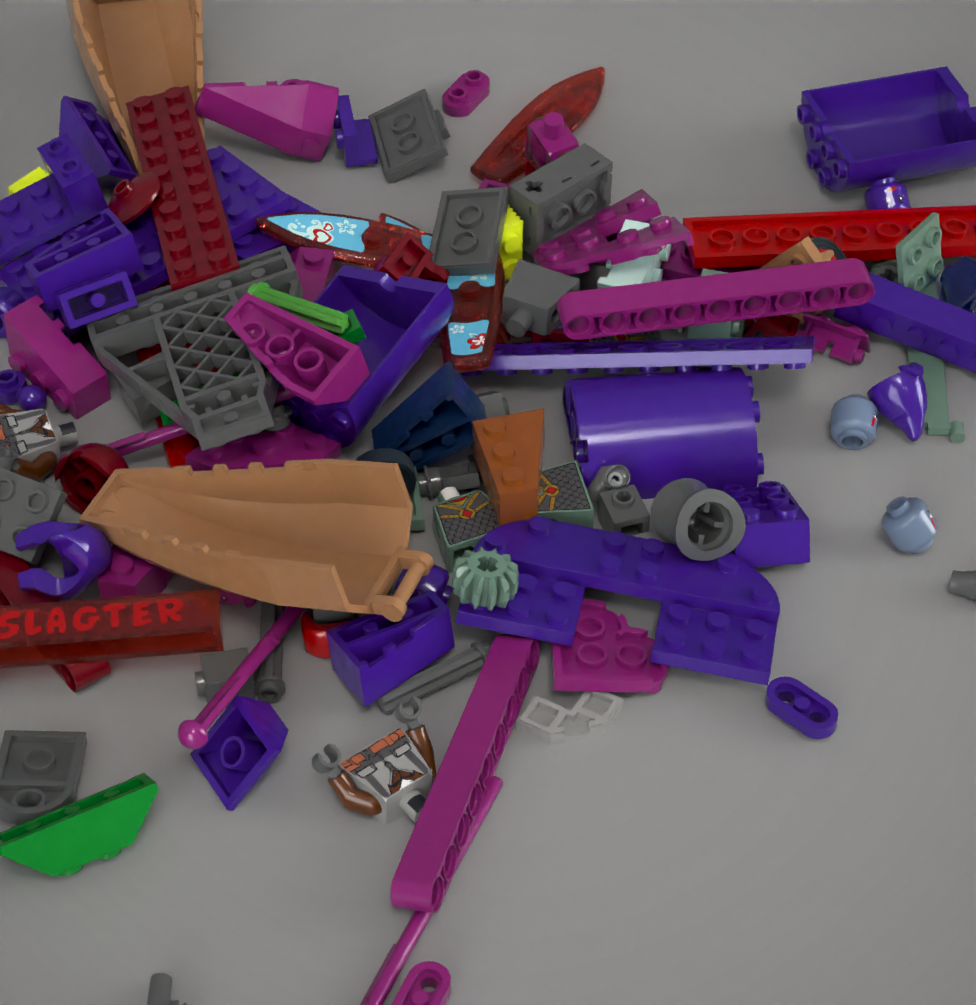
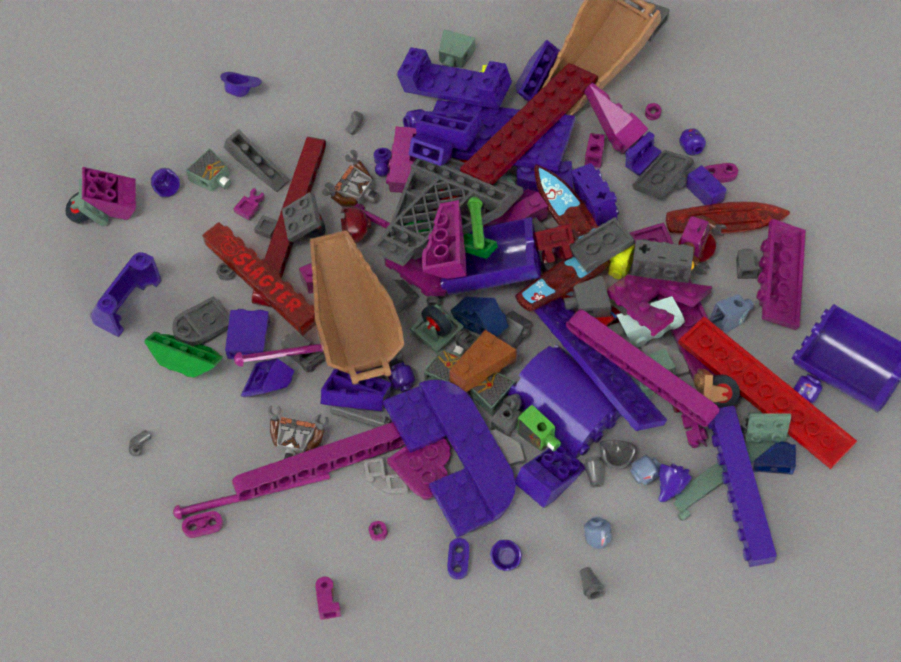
camera: 55 degrees right, 15 degrees up
(83, 552) = (297, 252): dark purple piece -> none
(132, 723) = (246, 332): none -> dark purple panel
(134, 196) = (505, 113): dark red dish -> none
(288, 173) = (595, 149): none -> magenta leg
(376, 193) = (595, 193): none -> dark purple piece
(390, 82) = (692, 141): none -> dark purple head
(477, 110) = (705, 186): none -> dark purple brick
(485, 578) = (407, 403): sand green gear -> none
(637, 148) = (746, 264): none -> dark grey brick
(661, 769) = (380, 537): none -> magenta bush
(671, 465) = (537, 429): none -> bright green torso
(689, 127) = (782, 274): none -> magenta plate
(697, 519) = (512, 449): dark grey hat -> none
(700, 191) = (730, 312): none -> sand blue torso
(721, 912) = (324, 593): none -> magenta leg
(800, 433) = (616, 453): none -> dark grey helmet
(801, 474) = (594, 470): none -> dark grey cone
(850, 647) = (505, 555): none -> dark purple hair

